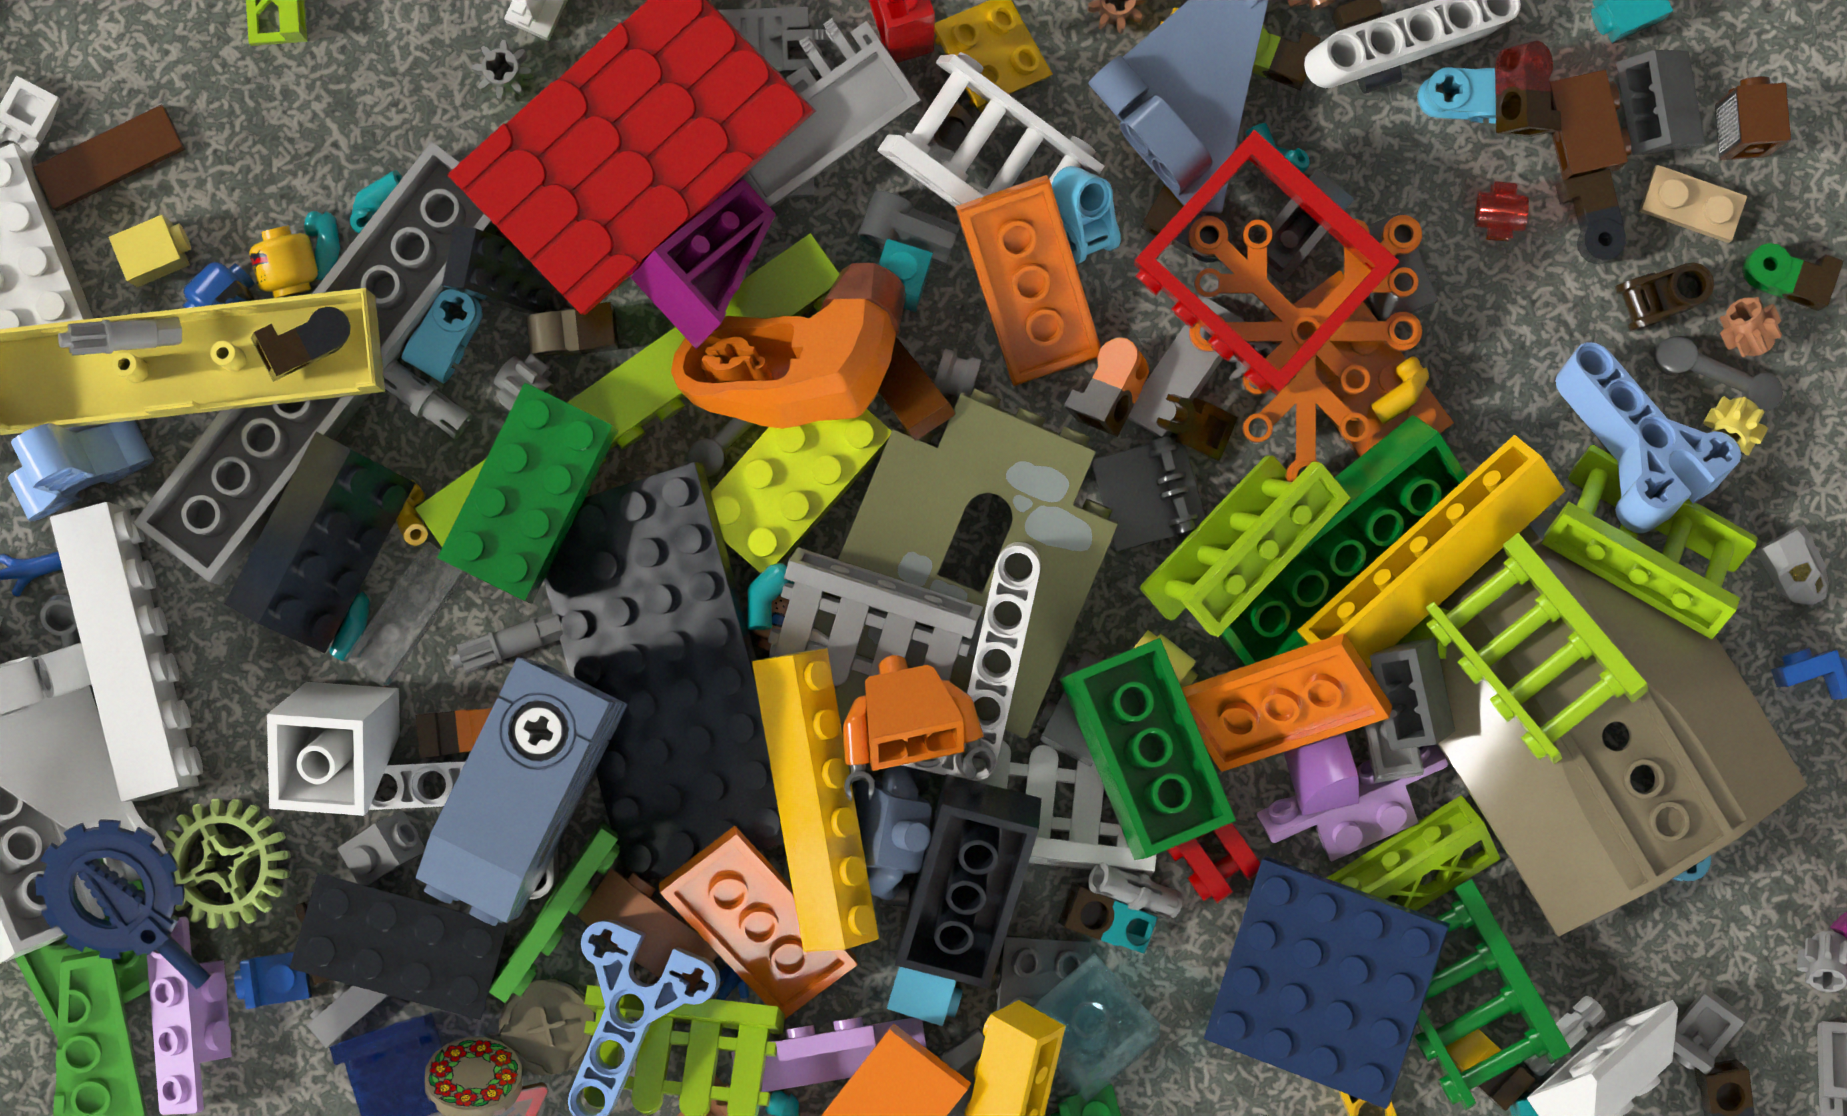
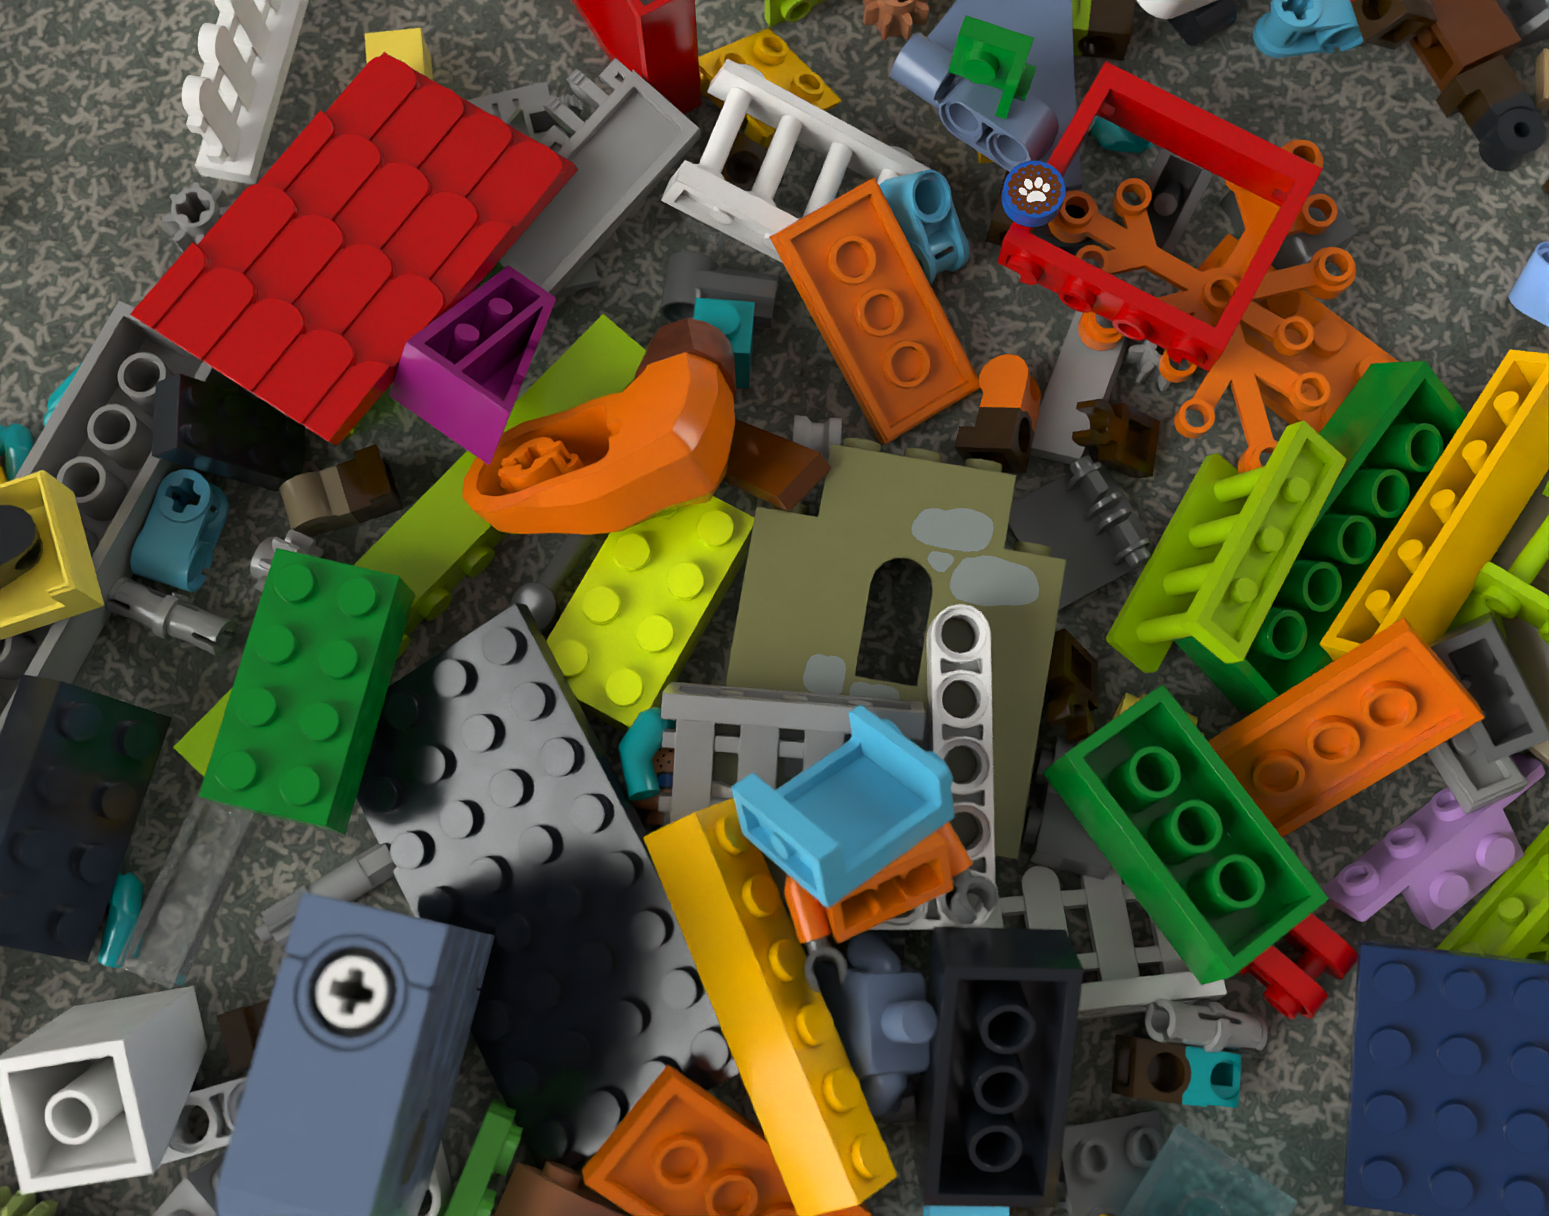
camera: 15 degrees left, 10 degrees down
(409, 520) = (173, 769): yellow arm -> none
(901, 679) = (849, 809): none -> medium azure panel
(1107, 614) = (1073, 685): none -> dark brown plate
(1165, 231) = (1033, 193): none -> tile
(1166, 103) = (994, 58): none -> green bracket
(1323, 775) = (1404, 817): medium lavender brick -> none
(1406, 394) = (1354, 344): yellow arm -> none
(1501, 211) = (1392, 128): clear red gear -> none

